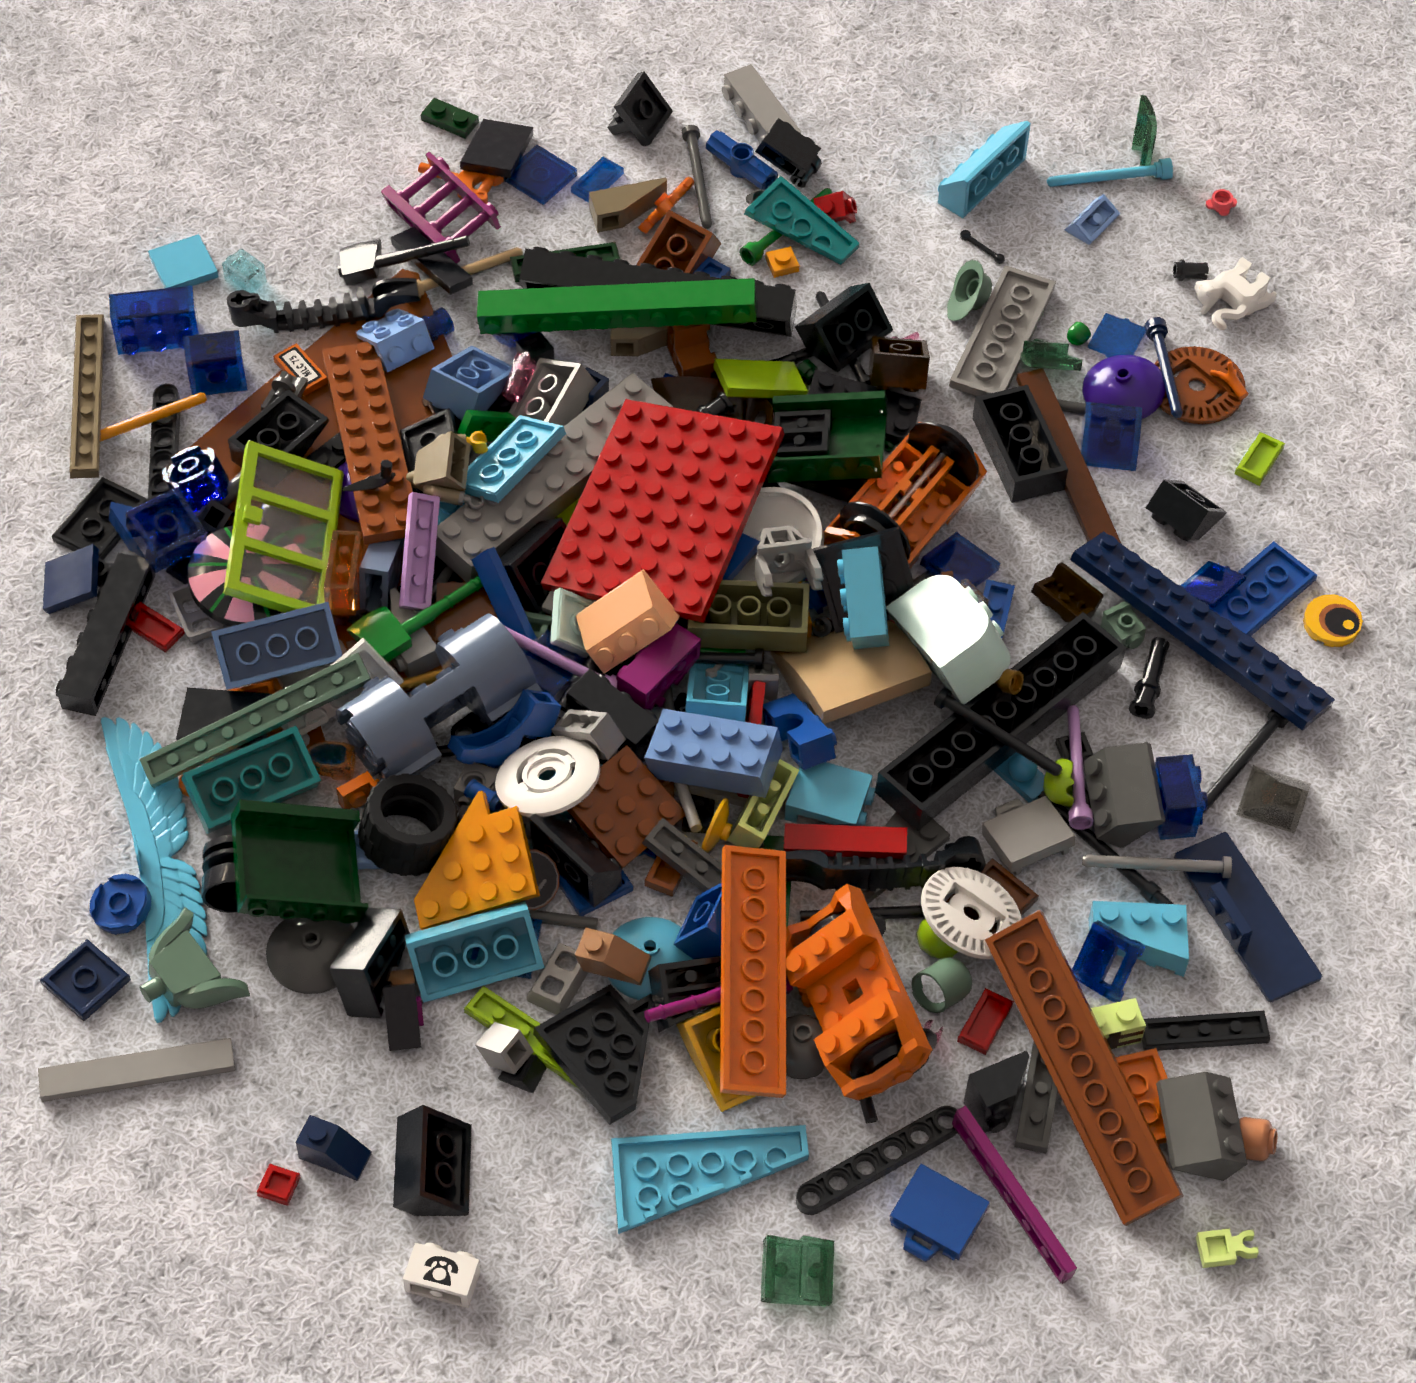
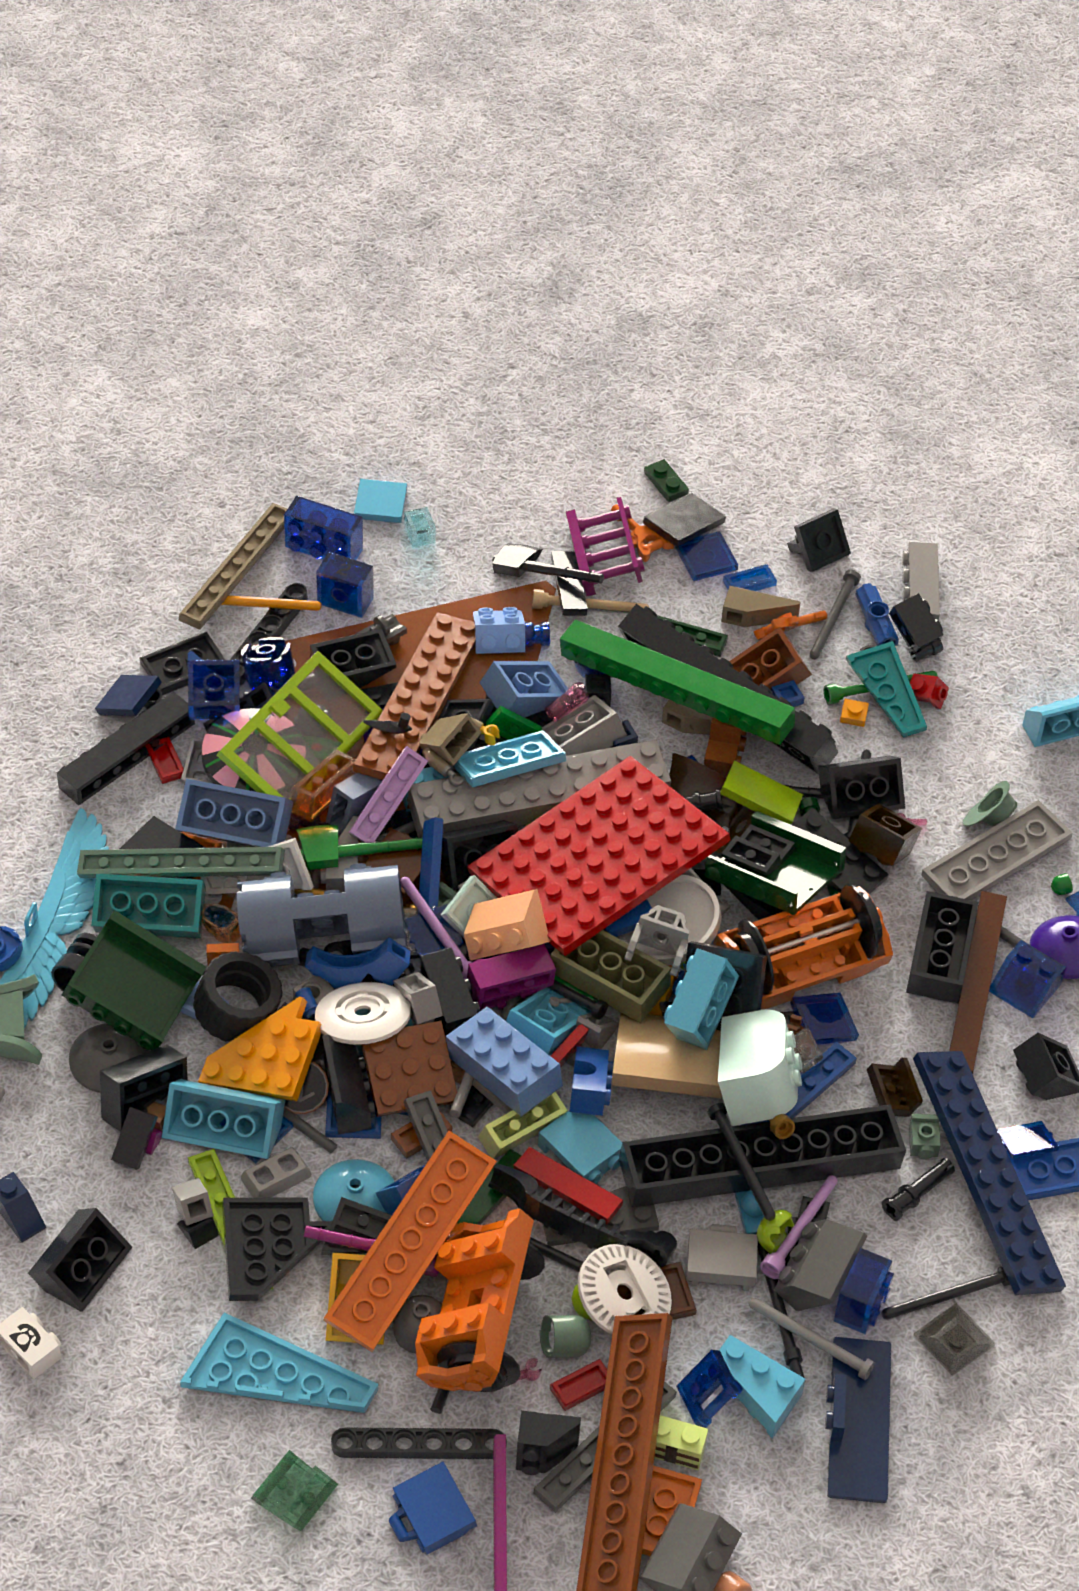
camera: 30 degrees right, 5 degrees down
(250, 310) = (400, 557): black piece -> none
(298, 364) = (411, 616): tile -> none
(611, 957) = (318, 1175): medium nougat slope -> none
(719, 827) = (472, 1119): yellow dish -> none
(966, 236) = (1026, 762): black hinge -> none
(1049, 355) = (1021, 889): clear green slope -> none
(1205, 1031) = (756, 1489): black tile -> none

